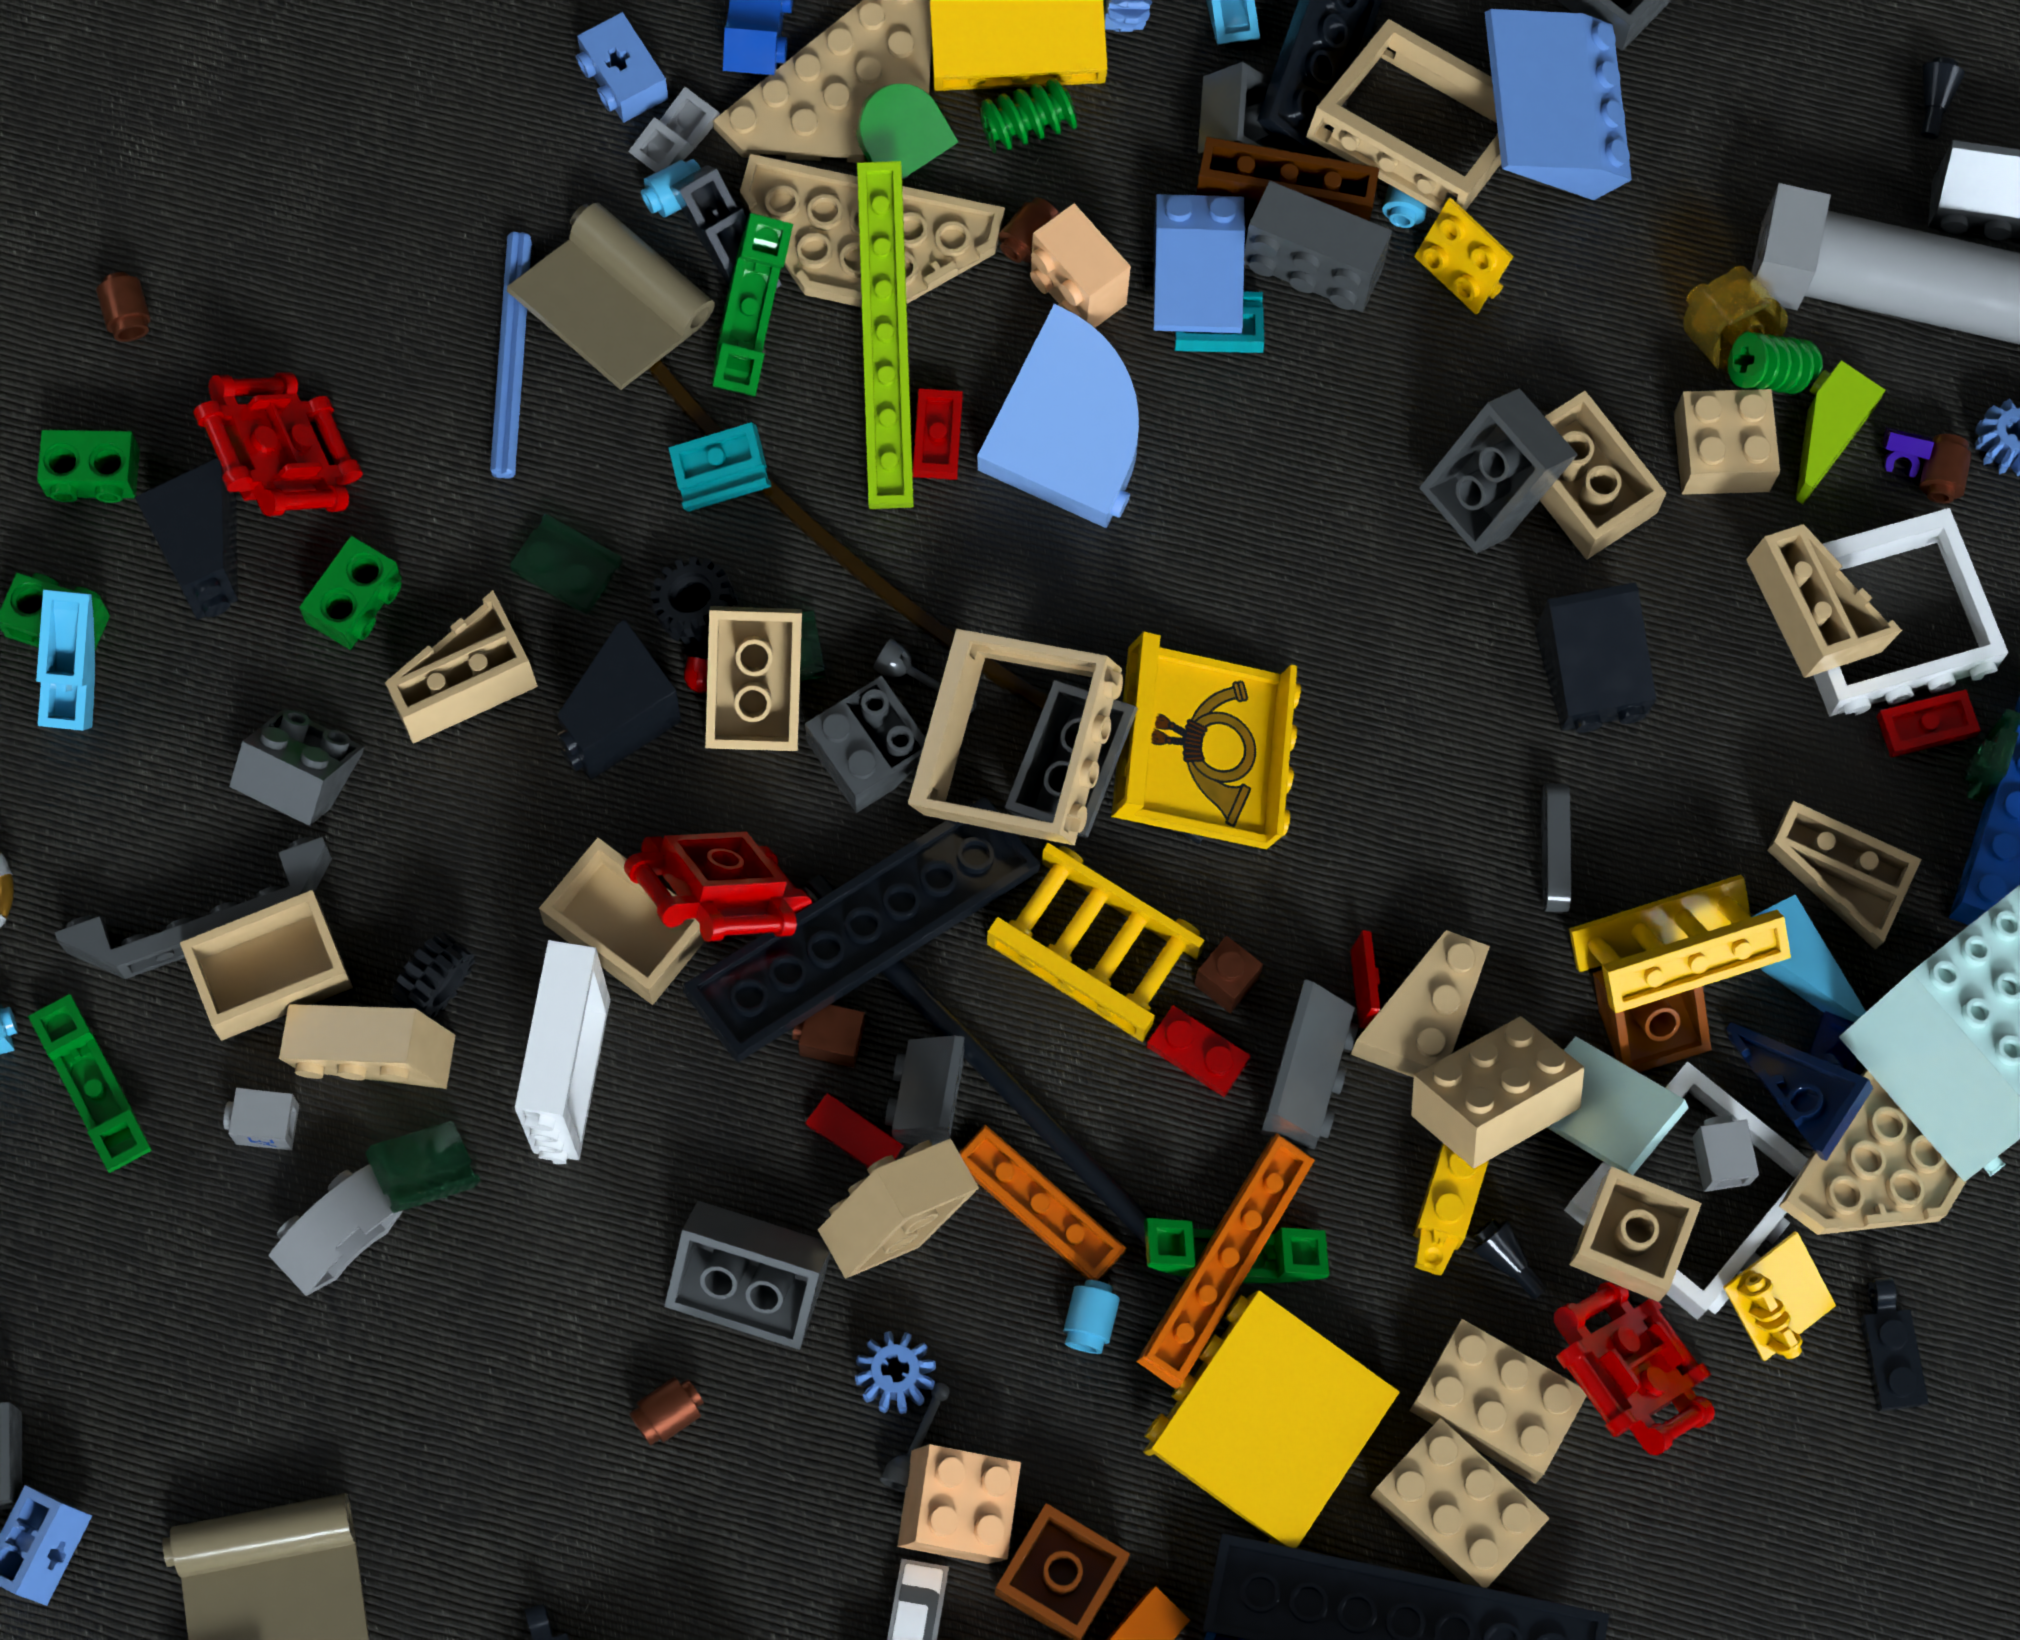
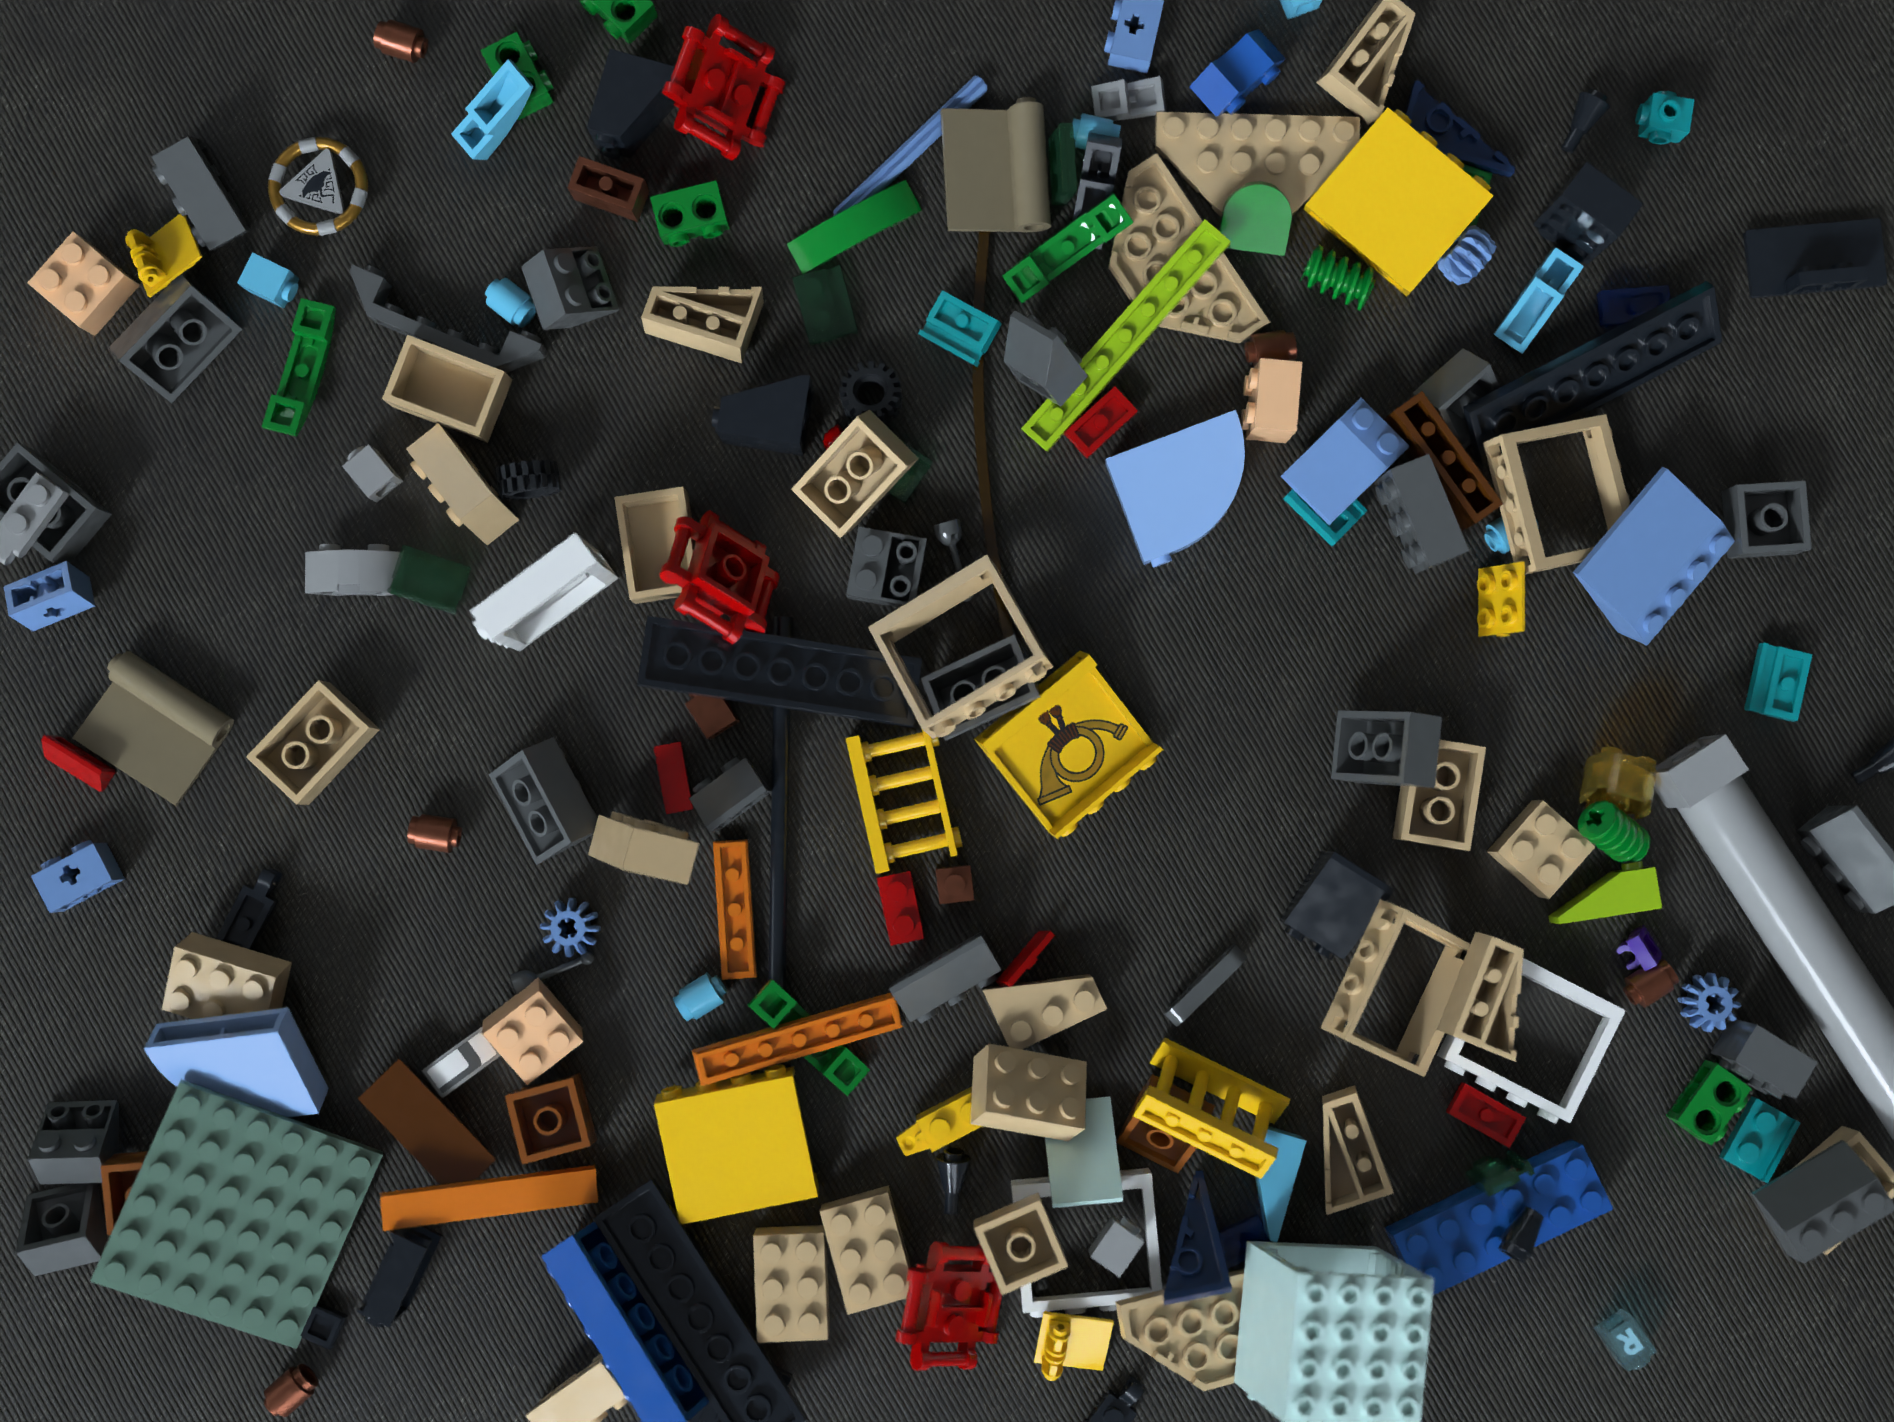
camera: 45 degrees right, 15 degrees up
(249, 638) = (608, 189): none -> copper brick
(249, 831) = (510, 302): none -> medium azure brick
(457, 1433) = (312, 743): none -> tan brick
(523, 470) = (853, 226): none -> green slope
(672, 237) = (1062, 164): none -> clear green plate
(828, 418) = (1042, 359): none -> dark grey slope
(1695, 699) = (1363, 972): none -> tan window
(1777, 112) = (1778, 682): none -> teal plate

